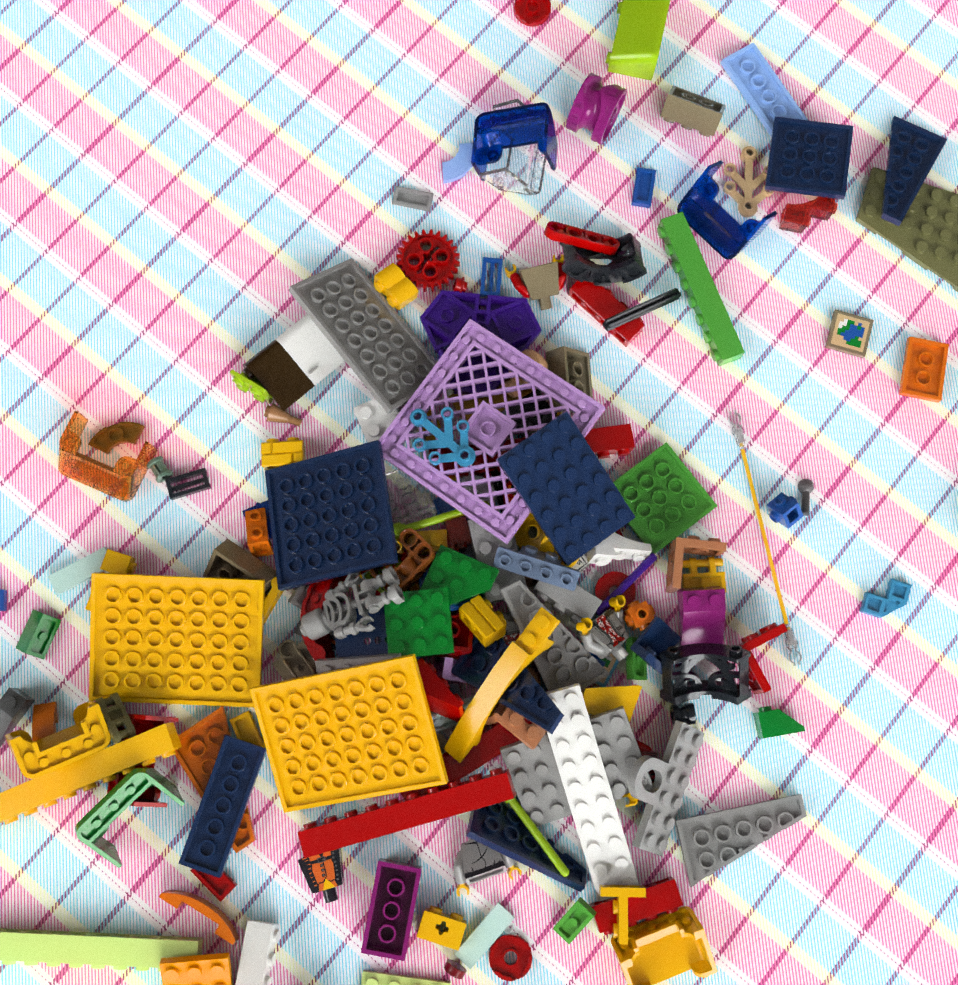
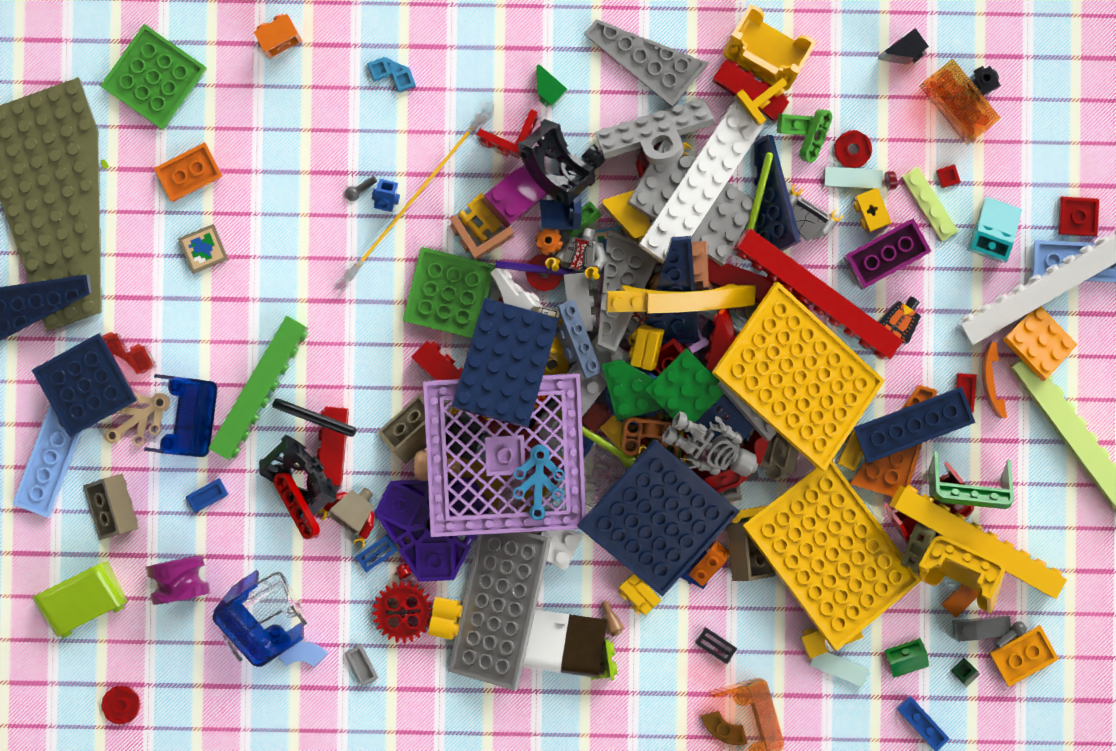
camera: 130 degrees left, 10 degrees up
(159, 469) = (722, 674): sand green bush -> none
(561, 944) = (808, 151): none -> bright green beam

